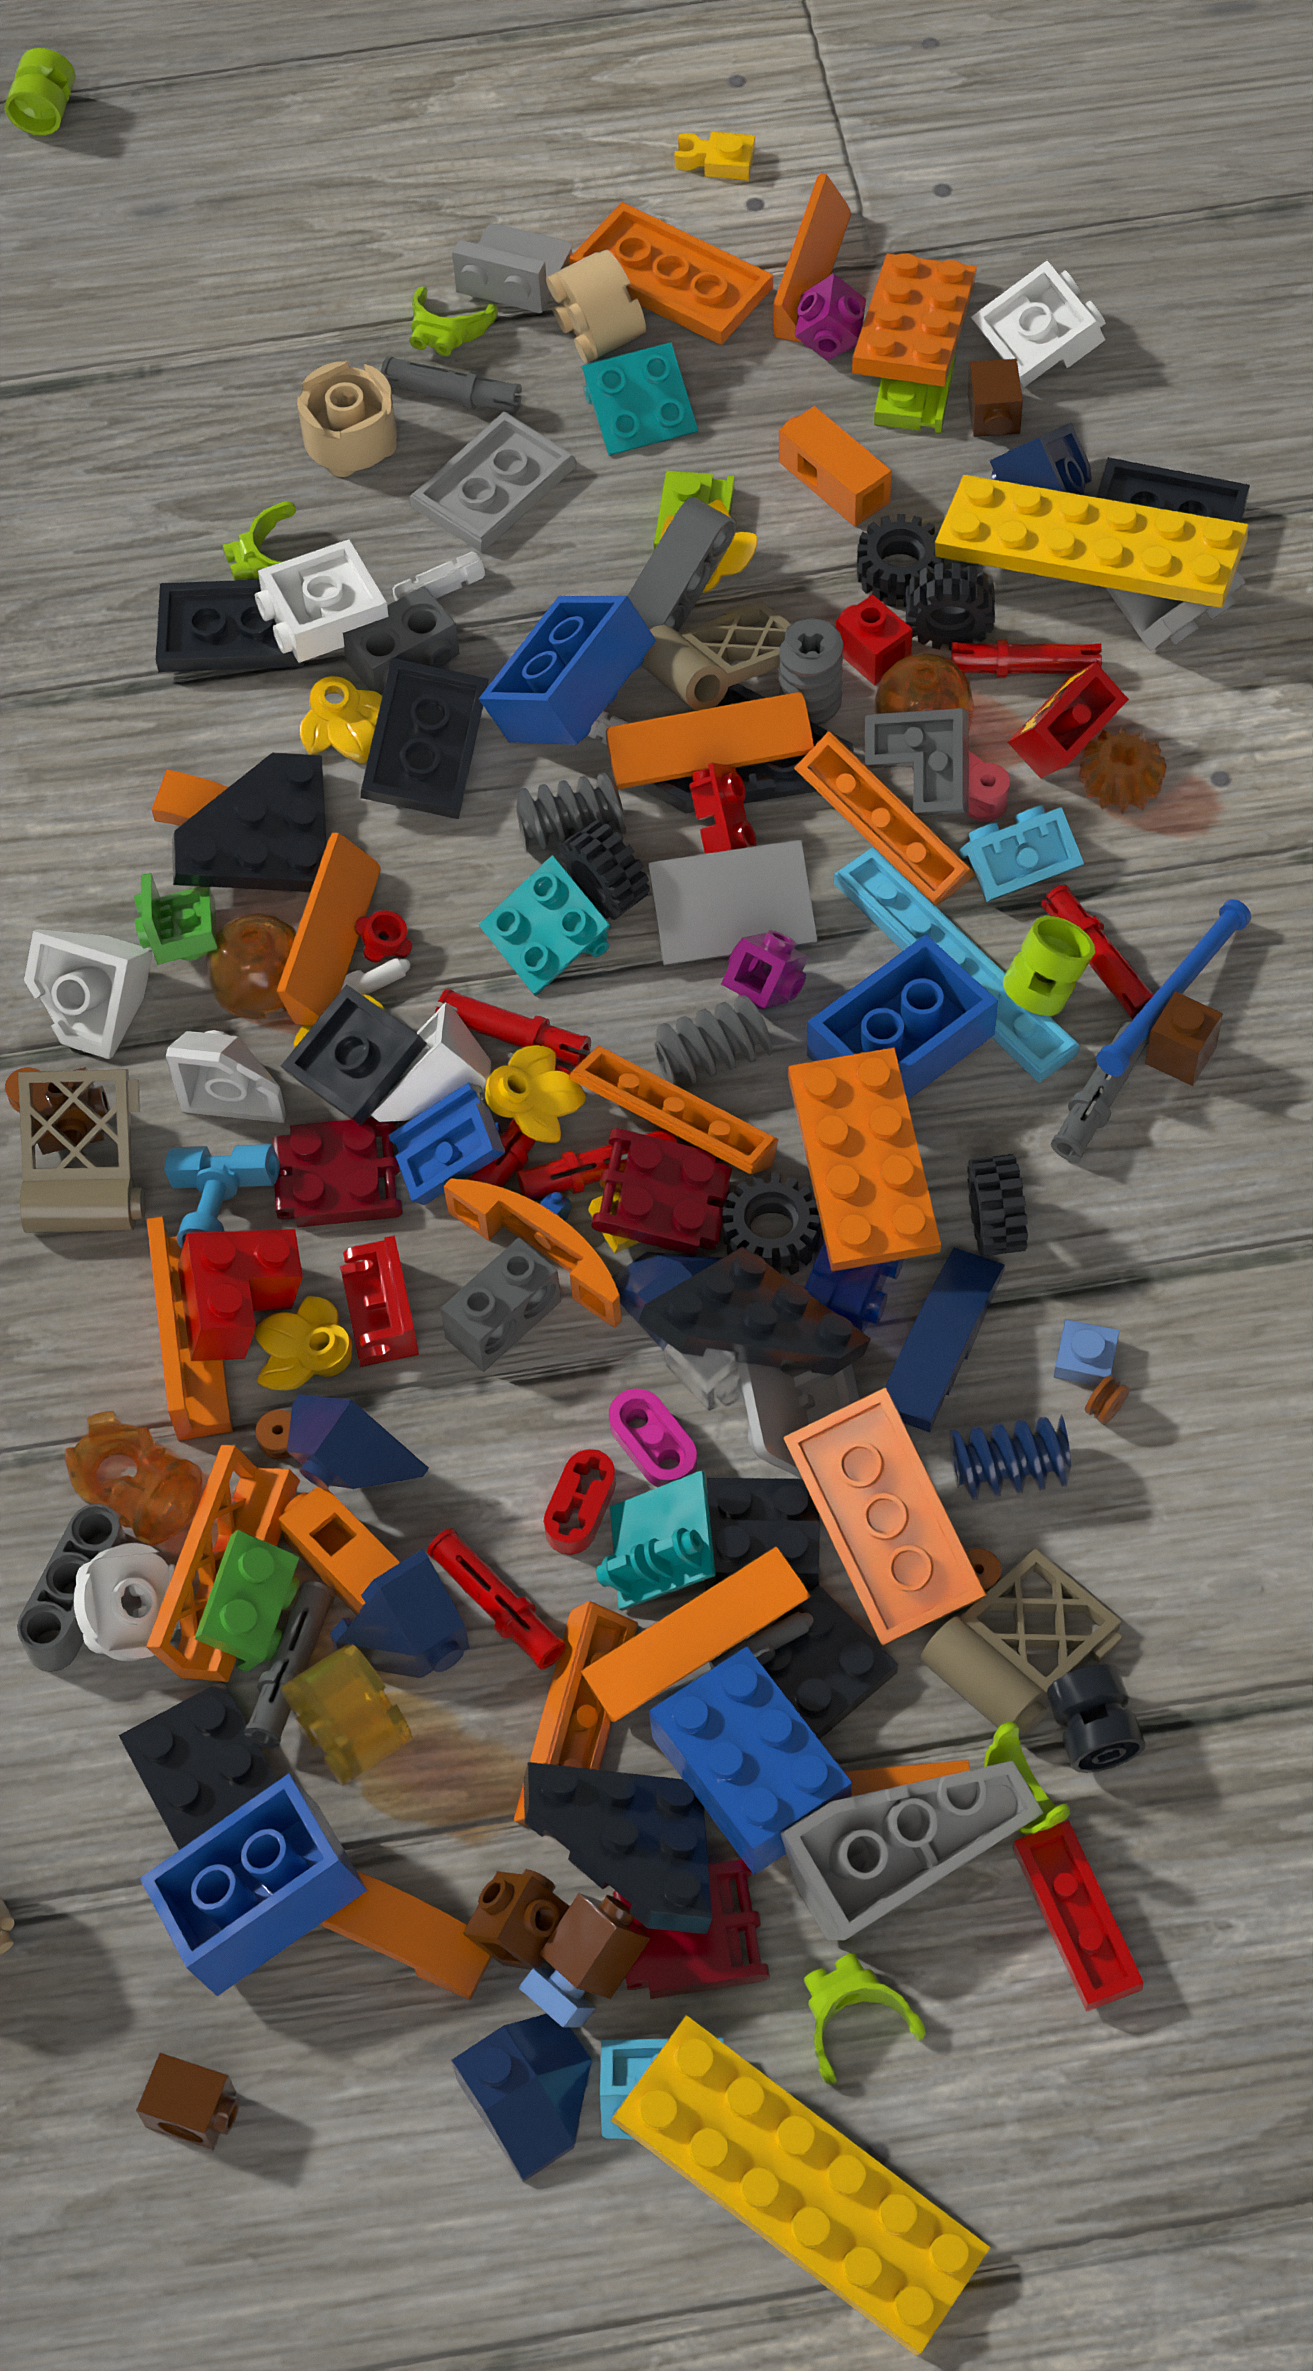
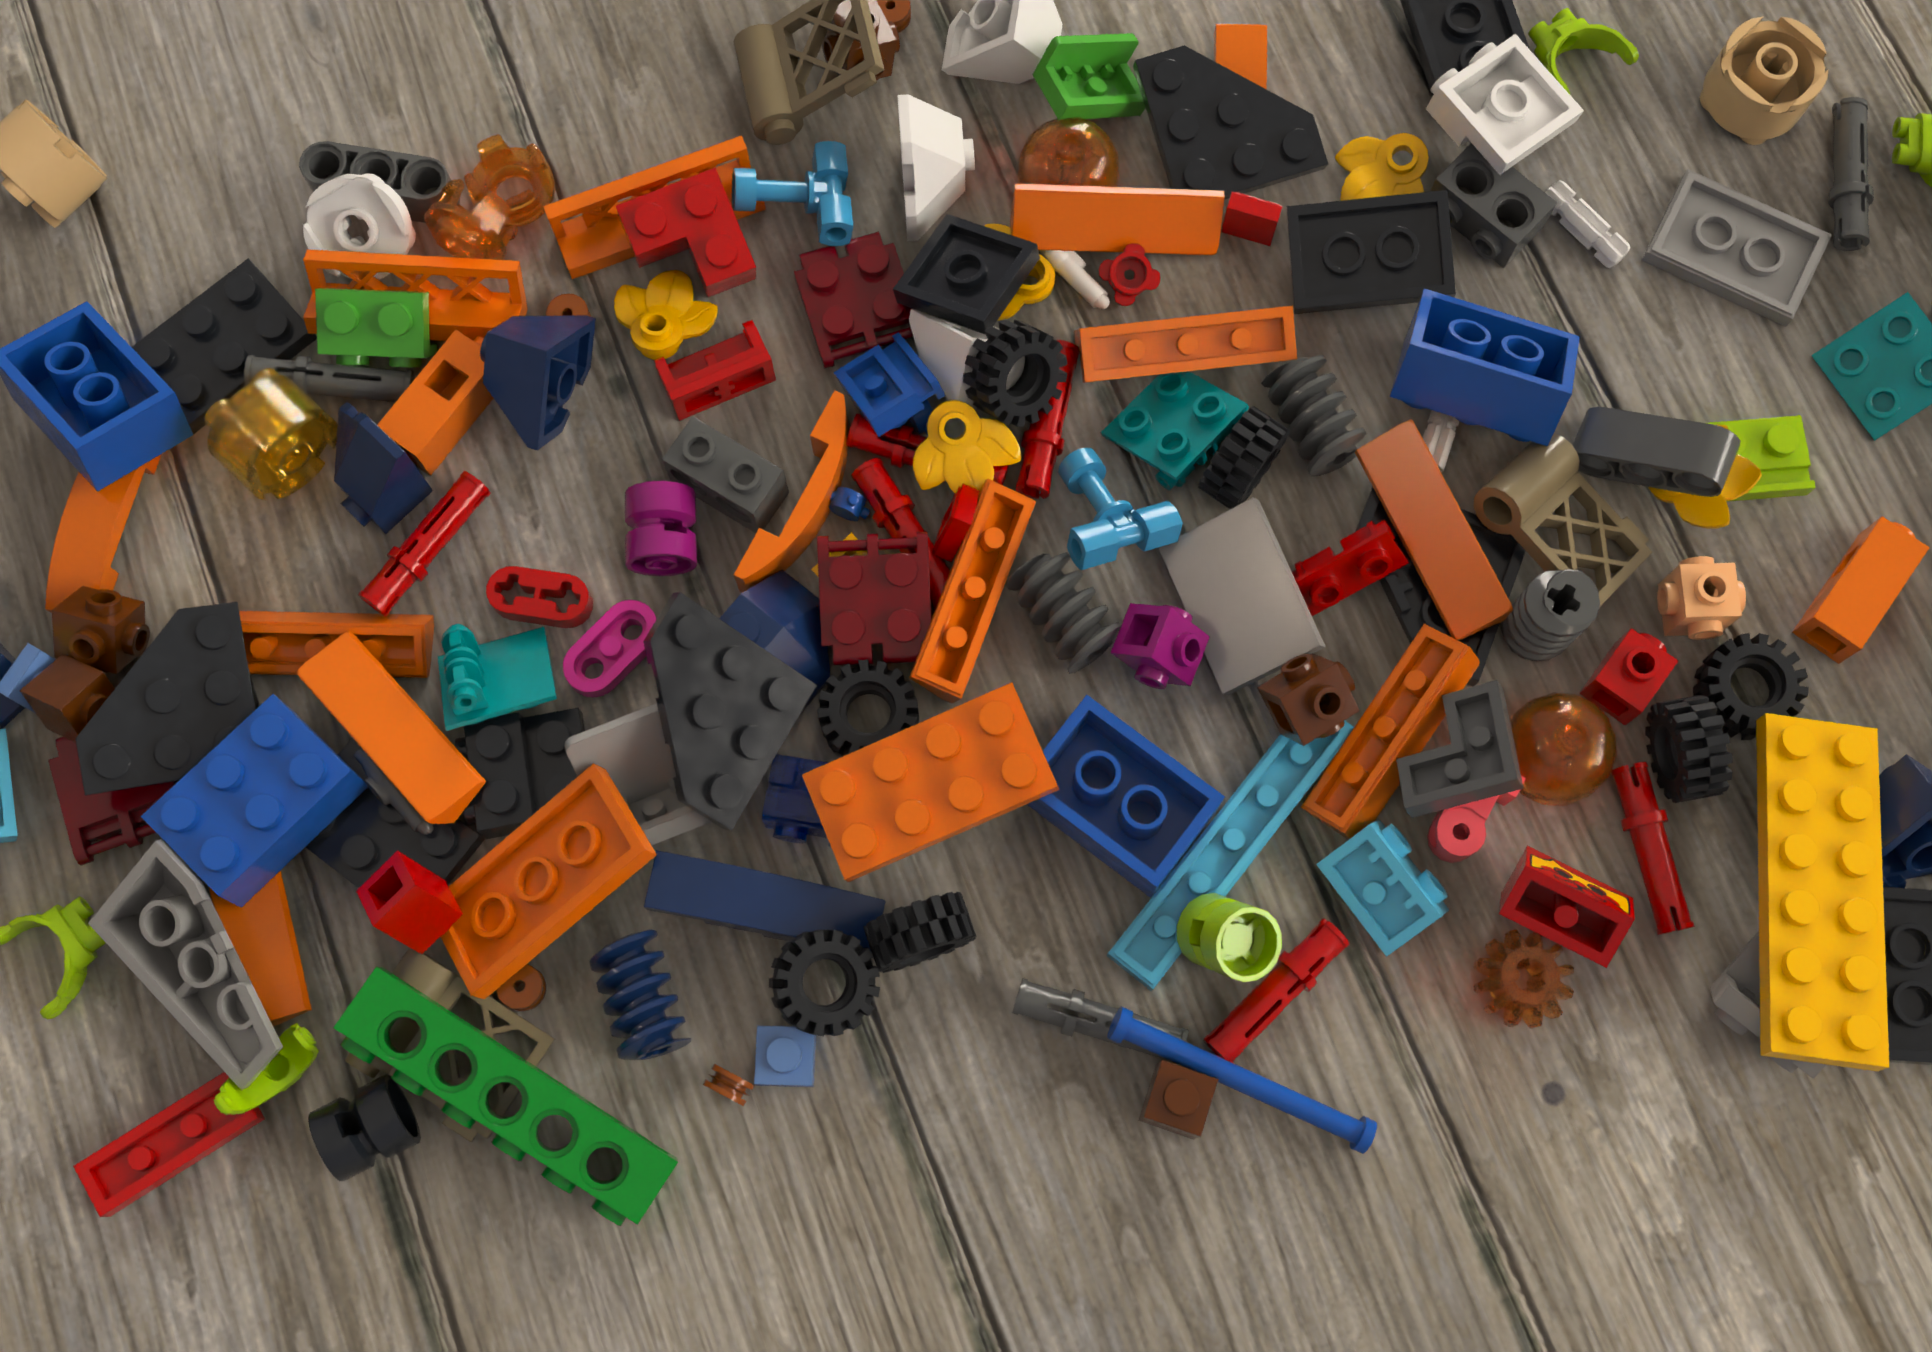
camera: 75 degrees right, 15 degrees up
(361, 820) = (1251, 218): none -> red tile
(471, 898) = (1186, 344): none -> orange fence
(474, 1024) = (994, 363): none -> black tyre
(541, 1369) = (660, 532): none -> magenta wheel
(602, 1109) = (956, 522): none -> red tile
(644, 980) = (1115, 521): none -> dark azure bar
(817, 573) = (1700, 598): none -> light nougat brick
(846, 861) = (1310, 698): none -> reddish brown brick
(886, 1625) = (409, 902): none -> red brick
(1024, 1311) = (859, 985): none -> black tyre
(1171, 1478) = (367, 1032): none -> green brick

